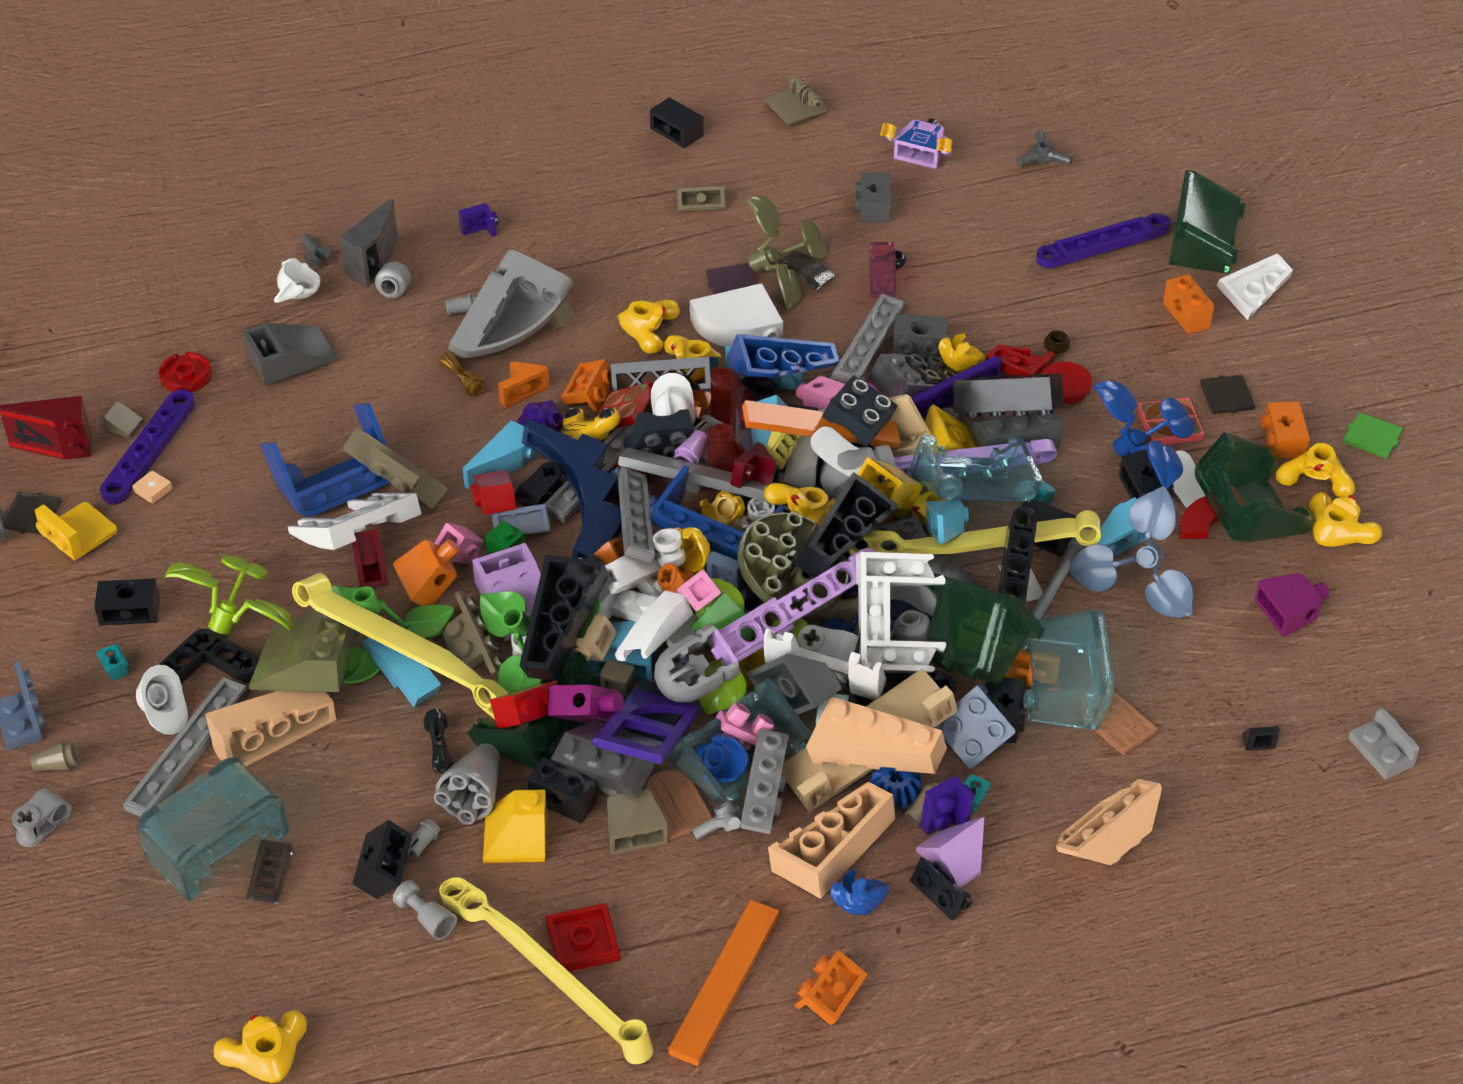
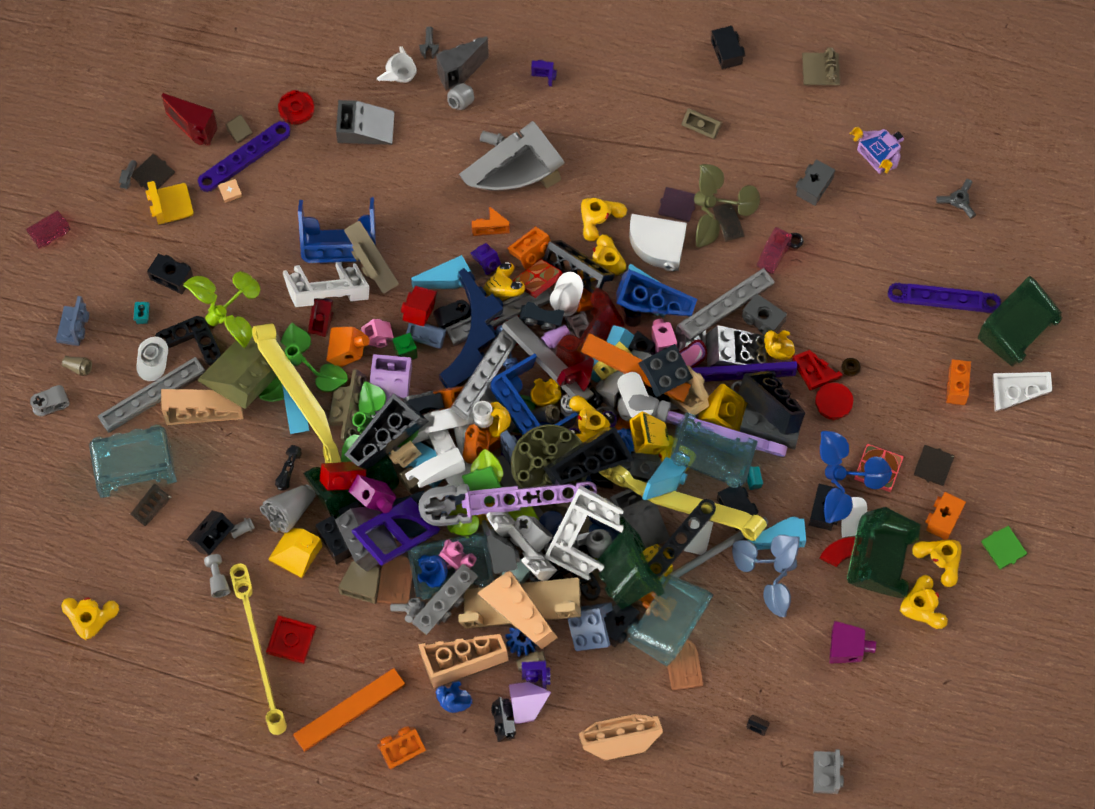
camera: 30 degrees right, 20 degrees up
(472, 384) = (458, 184): pearl gold piece -> none
(699, 590) = (472, 461): bright pink panel -> none
(980, 792) = (559, 665): teal piece -> none

